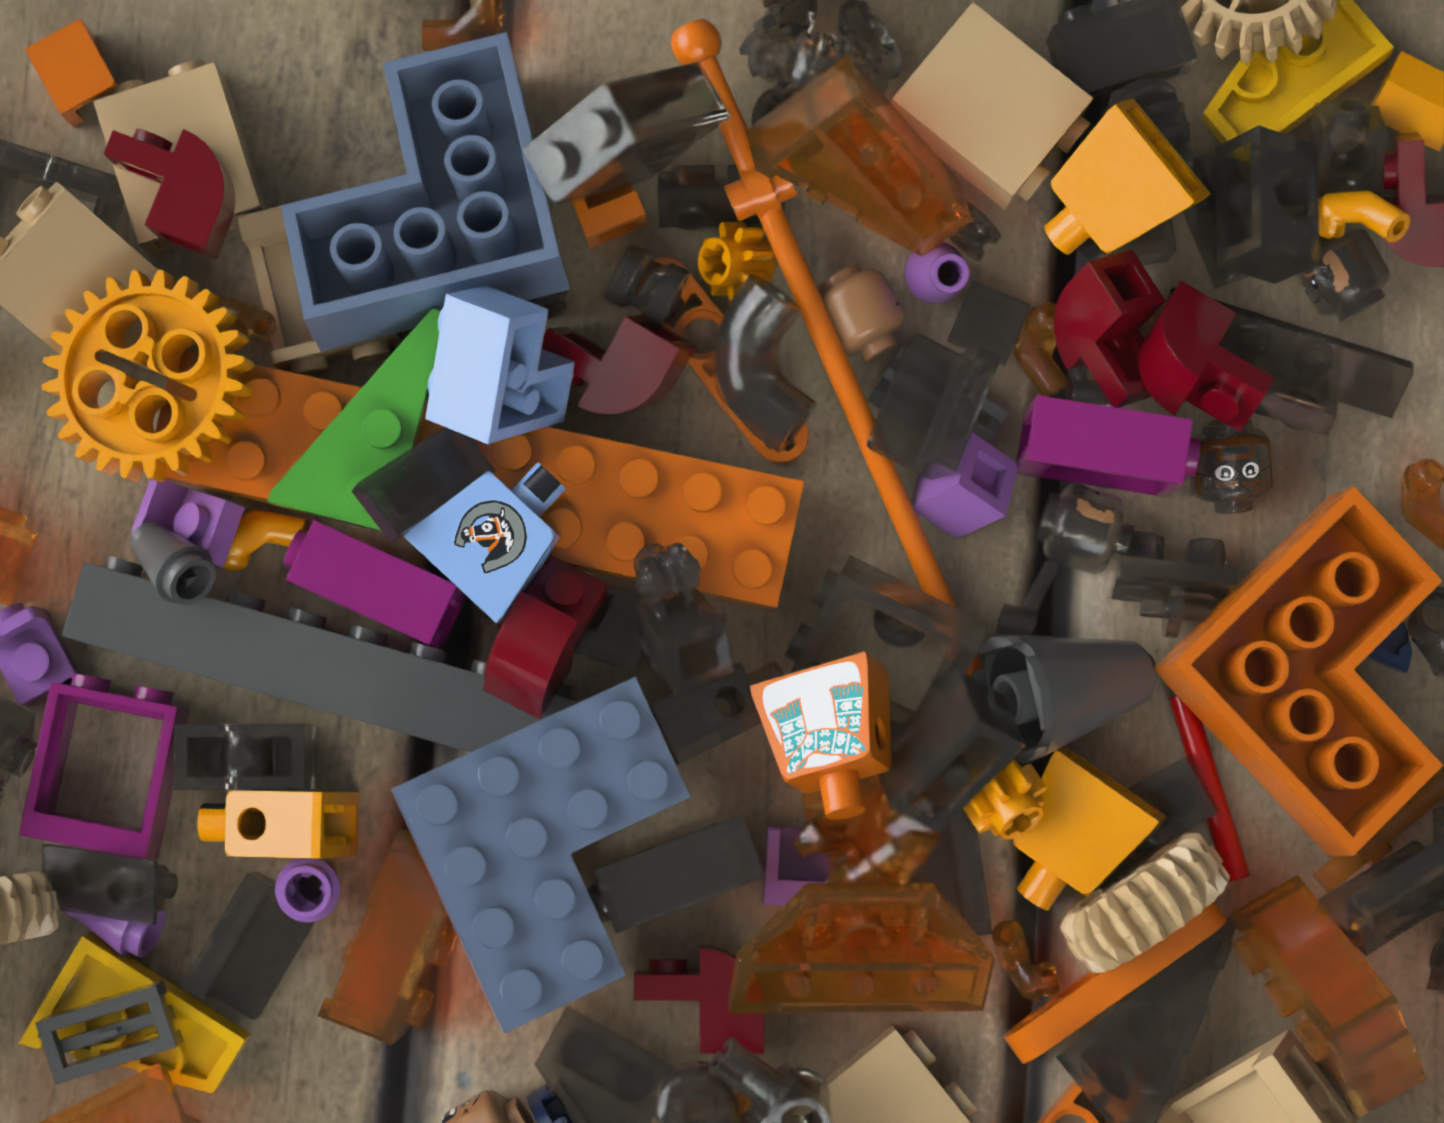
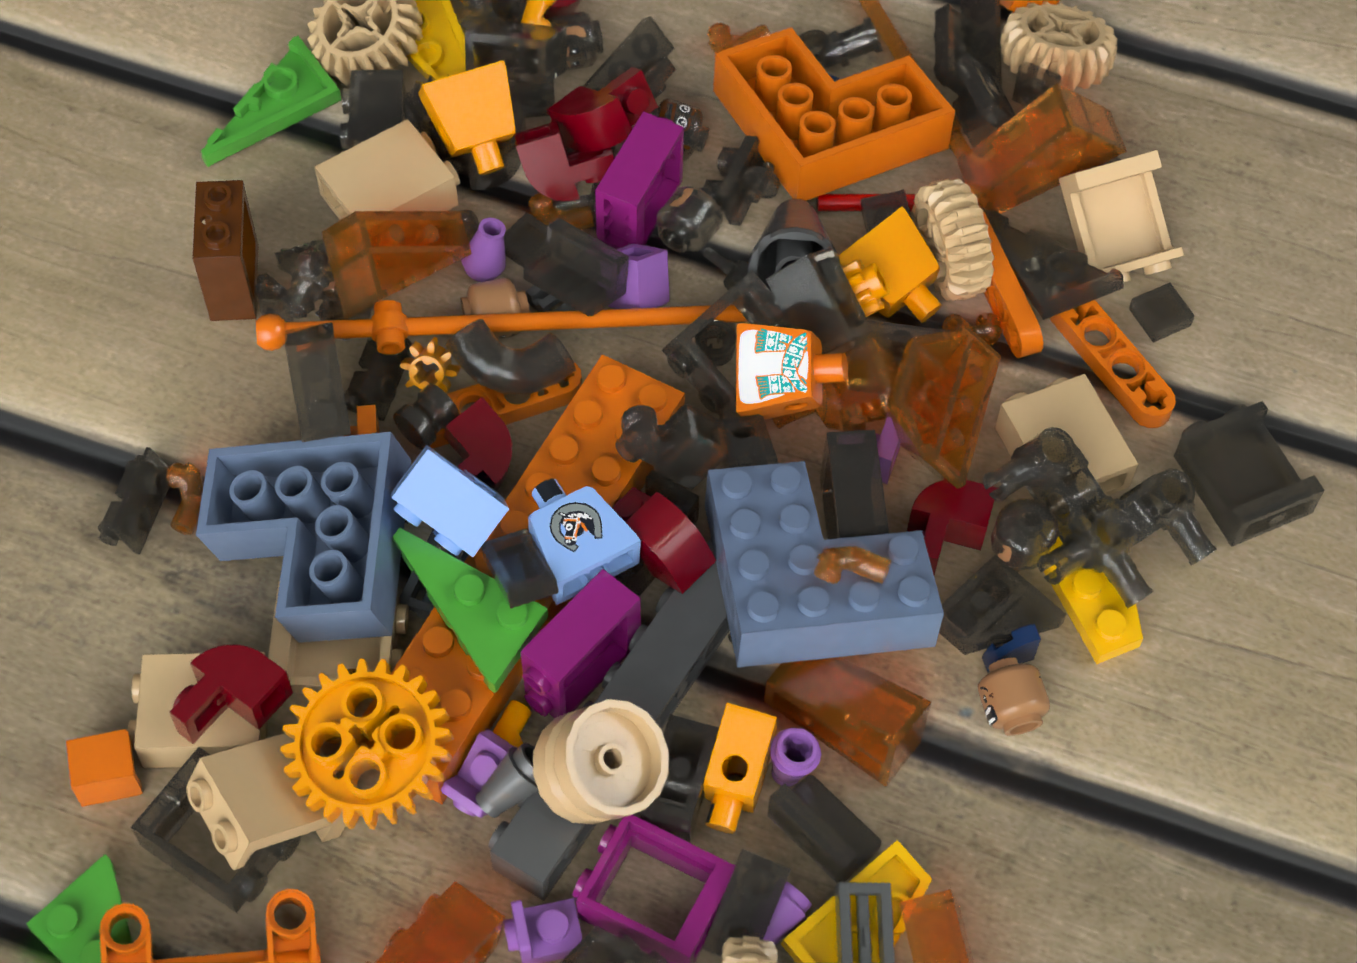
camera: 80 degrees left, 25 degrees down
(194, 663) = (601, 762): none -> tan wheel
(525, 894) = (853, 559): none -> clear orange arm

